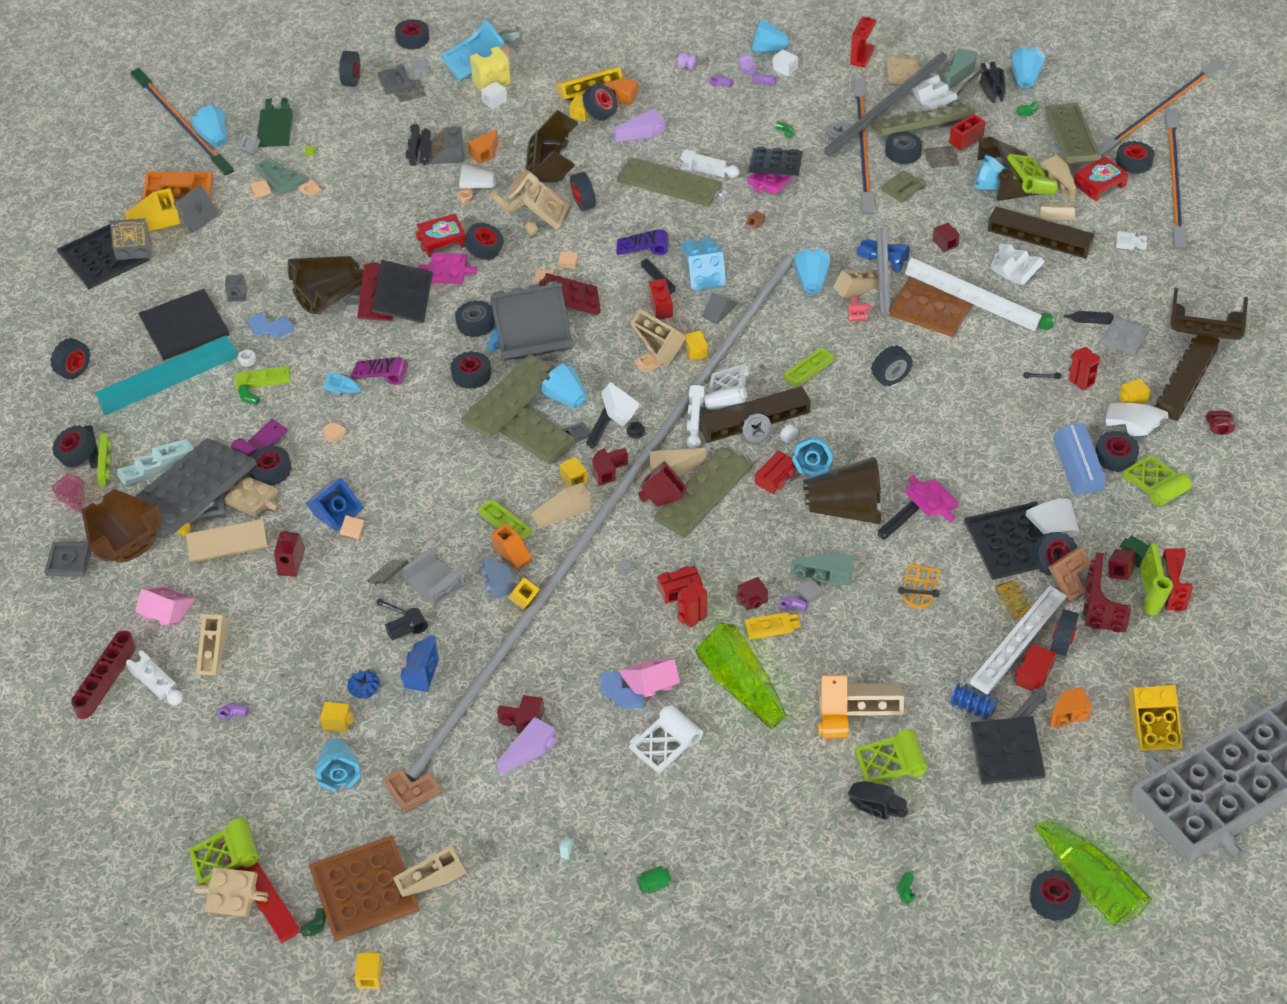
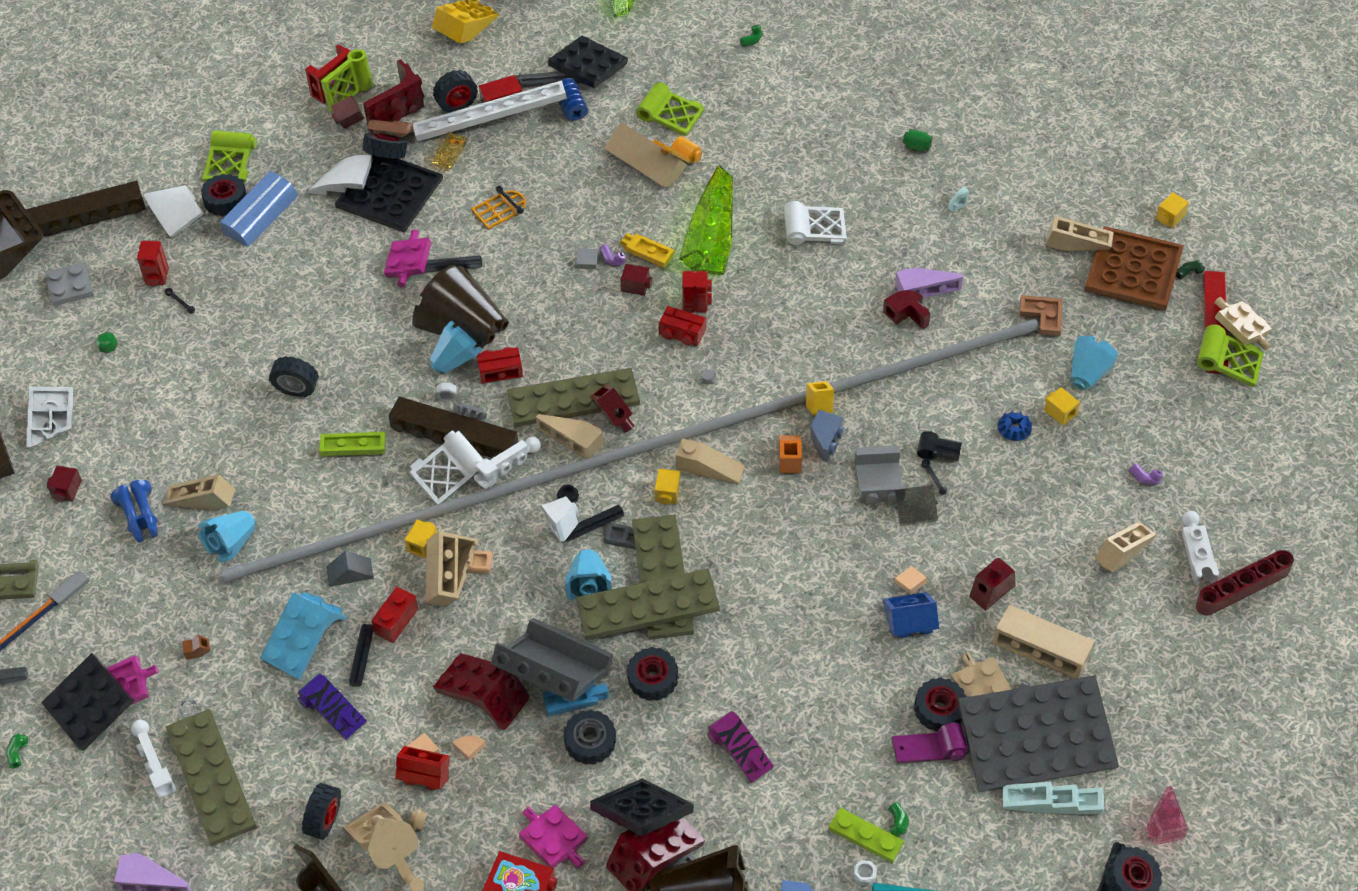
camera: 140 degrees left, 5 degrees up
(68, 559) = (1212, 740): dark grey plate -> none
(104, 460) = (1117, 823): lime plate -> none
(120, 526) = (1145, 733): reddish brown cone -> none
(163, 604) = (1144, 617): bright pink slope -> none
(333, 432) = (845, 706): light nougat tile -> none
(338, 383) = (795, 758): medium azure plate -> none
(421, 665) = (958, 394): blue slope -> none
(483, 241) = (486, 831): black wheel -> none
(498, 516) = (770, 486): lime plate -> none
(553, 243) = (422, 767): none -> red brick
(606, 463) = (632, 477): dark red brick -> none
(624, 697) = (814, 276): medium blue tile -> none
(651, 676) = (782, 268): bright pink slope -> none
(825, 567) = (553, 259): sand green slope -> none
(857, 311) = (246, 461): coral arm -> none
(877, 800) = (712, 87): black hinge -> none
(883, 274) = (169, 482): light grey axle -> none
(929, 307) = (163, 432): dark orange plate -> none
(973, 294) = (140, 399): white plate -> none
(1071, 707) = (512, 58): orange slope -> none
(1091, 317) = (67, 319): black piece -> none
(1134, 392) = (142, 226): yellow brick -> none
(1136, 545) = (321, 118): dark green brick -> none
(1220, 422) = (119, 161): dark red piece -> none

